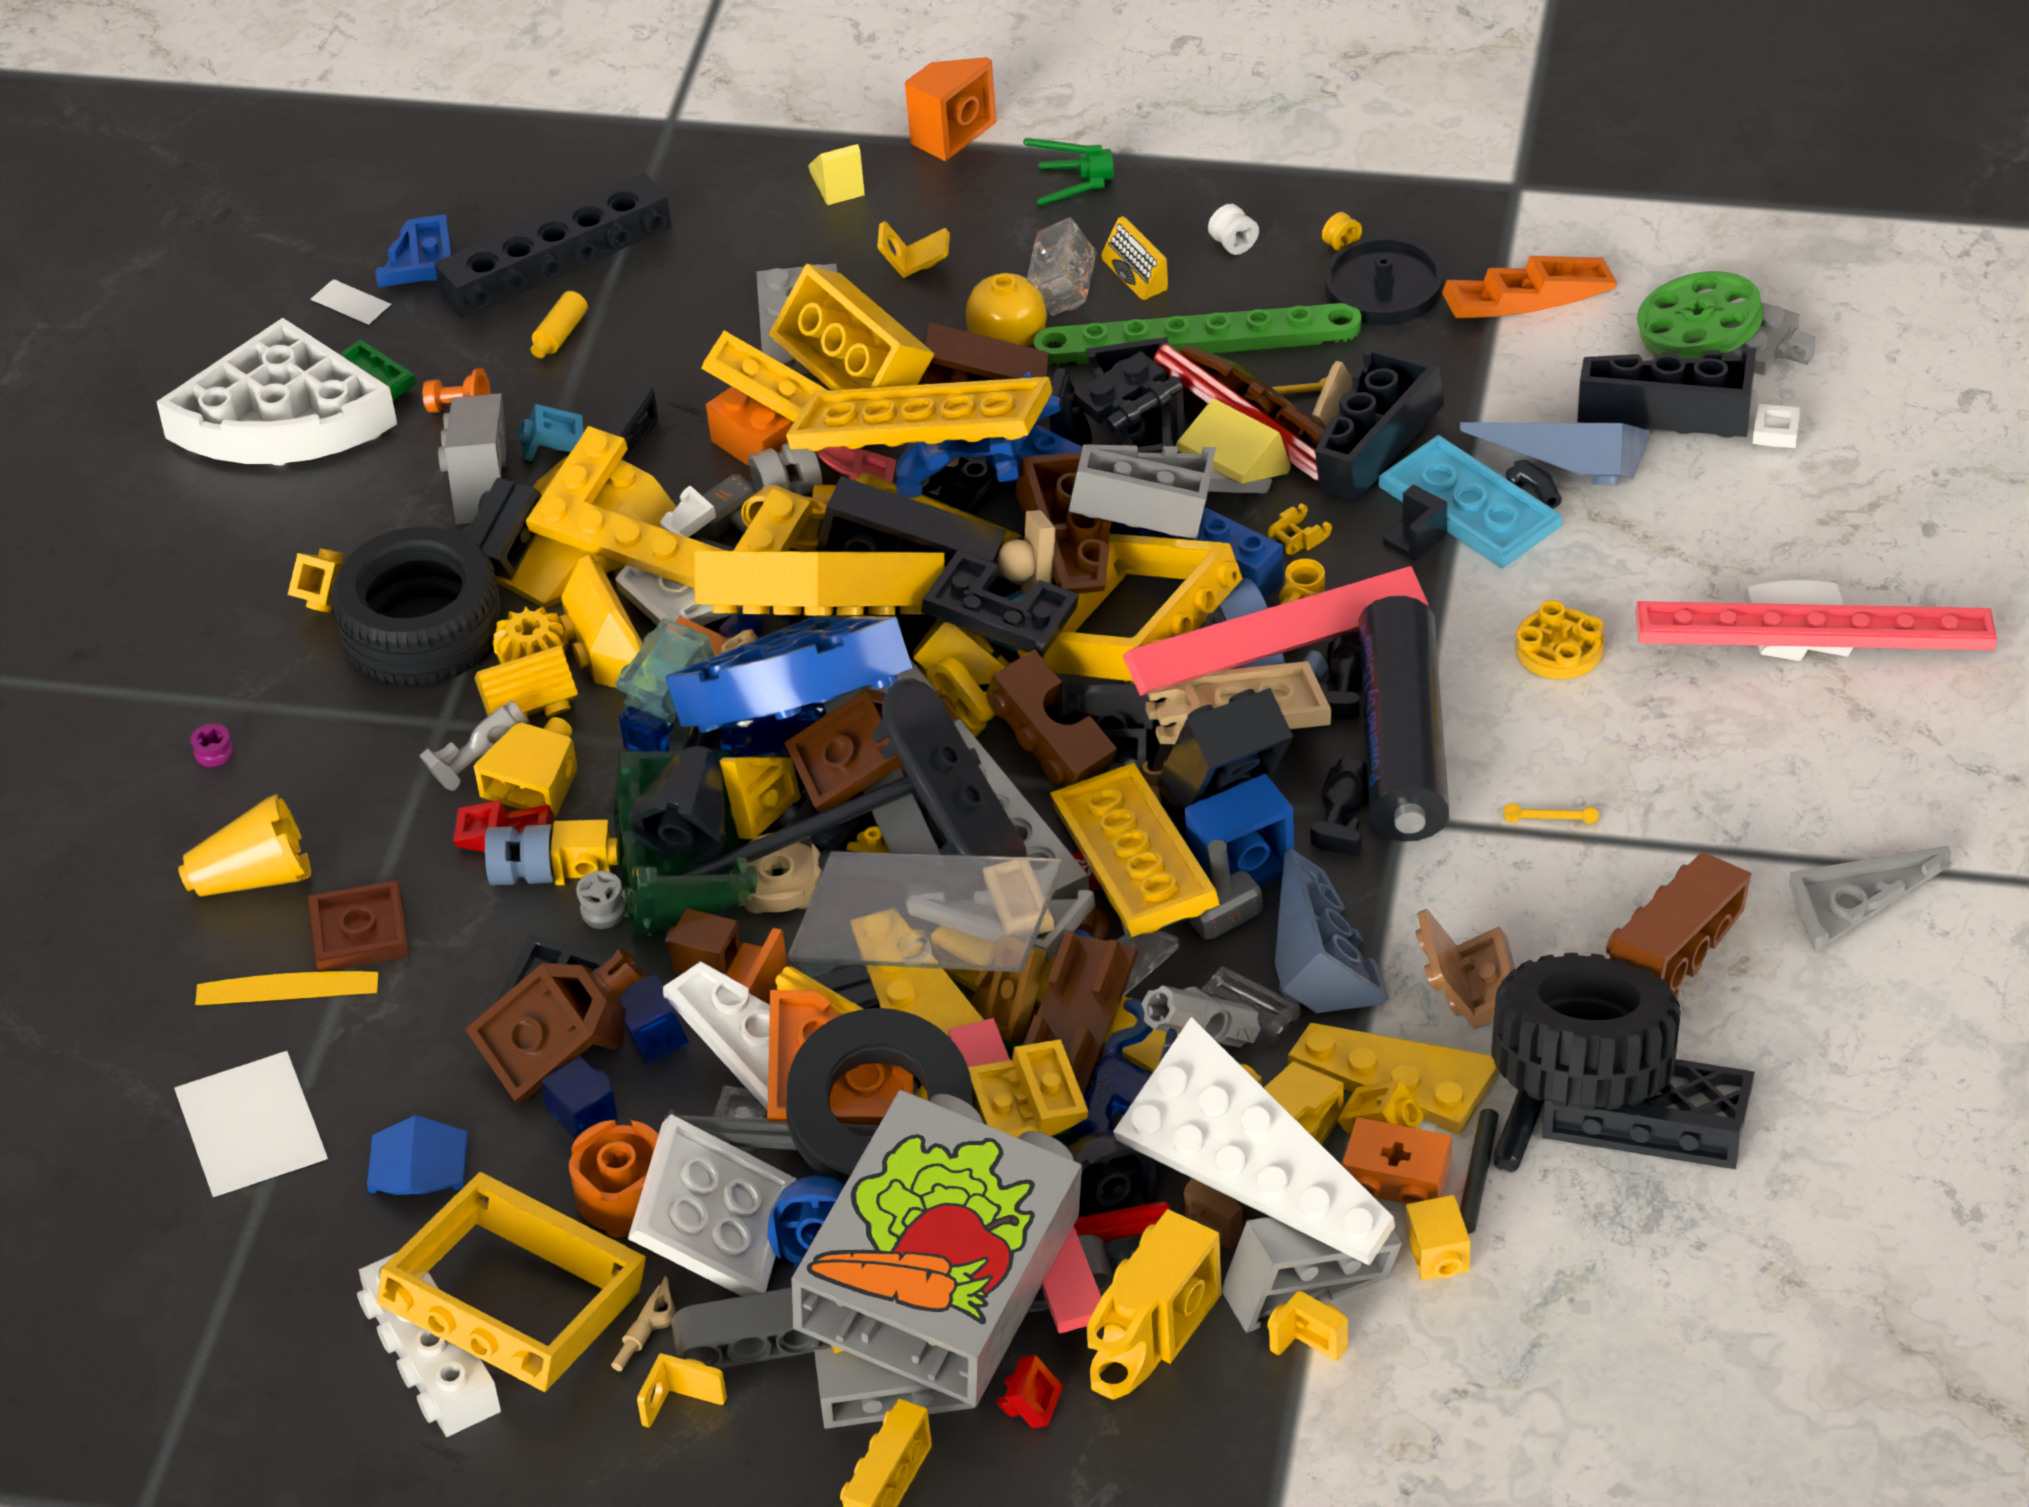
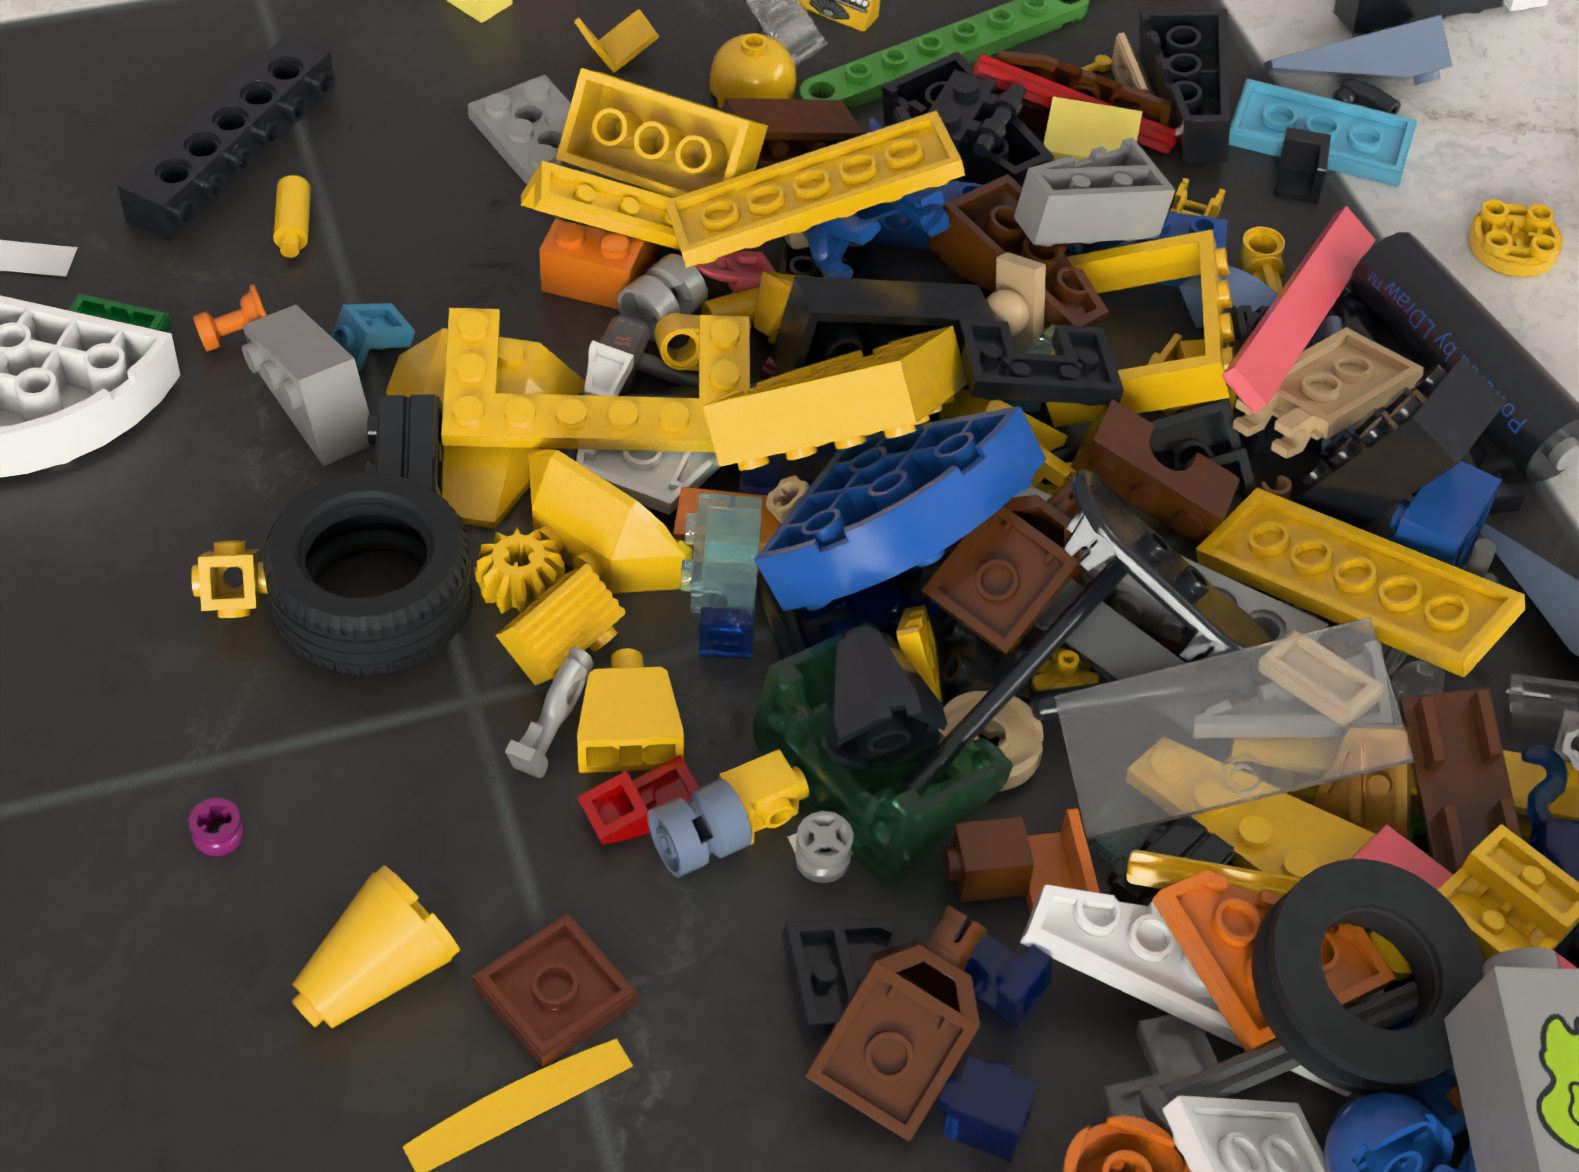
camera: 35 degrees left, 5 degrees up
(415, 251) = (79, 182): blue wing -> none
(636, 420) = (457, 280): black tile -> none

